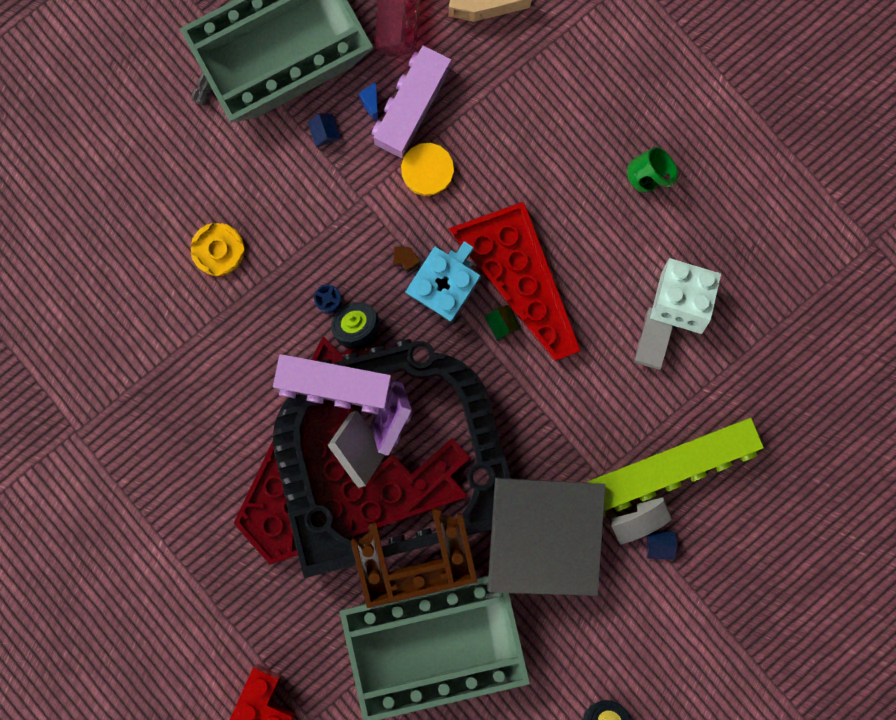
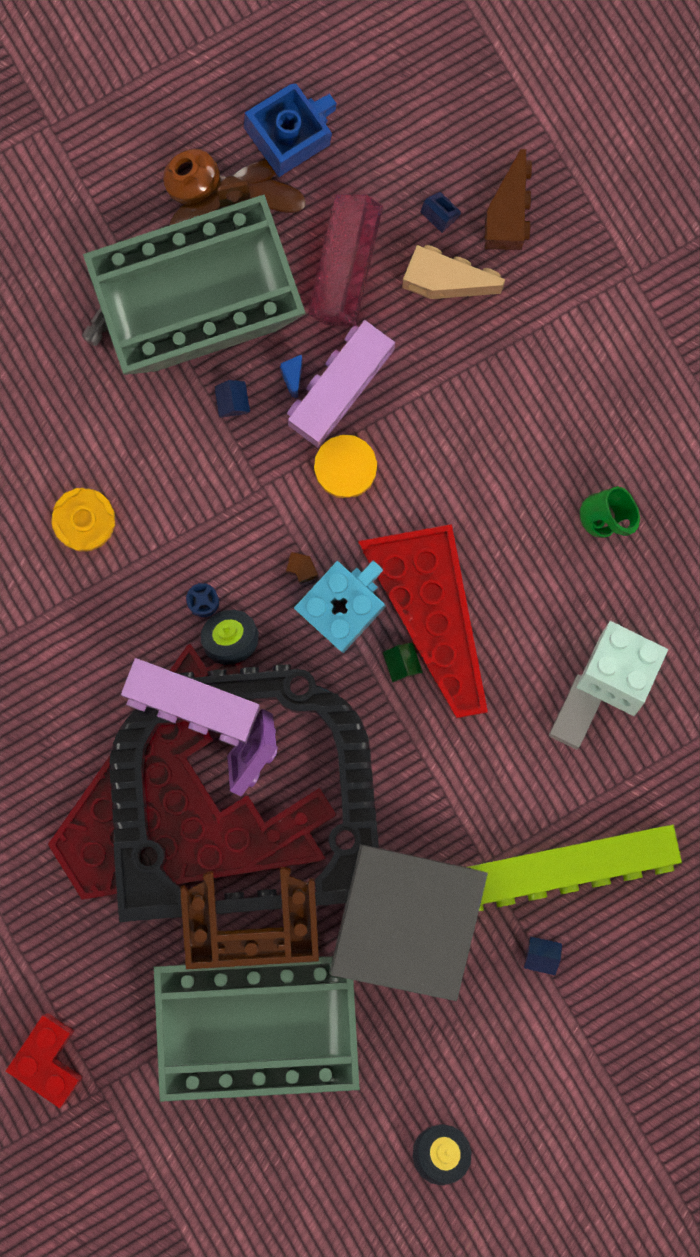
camera: 10 degrees right, 0 degrees up
(356, 449) = (205, 782): light grey tile -> none
(649, 518) = (531, 923): light grey slope -> none

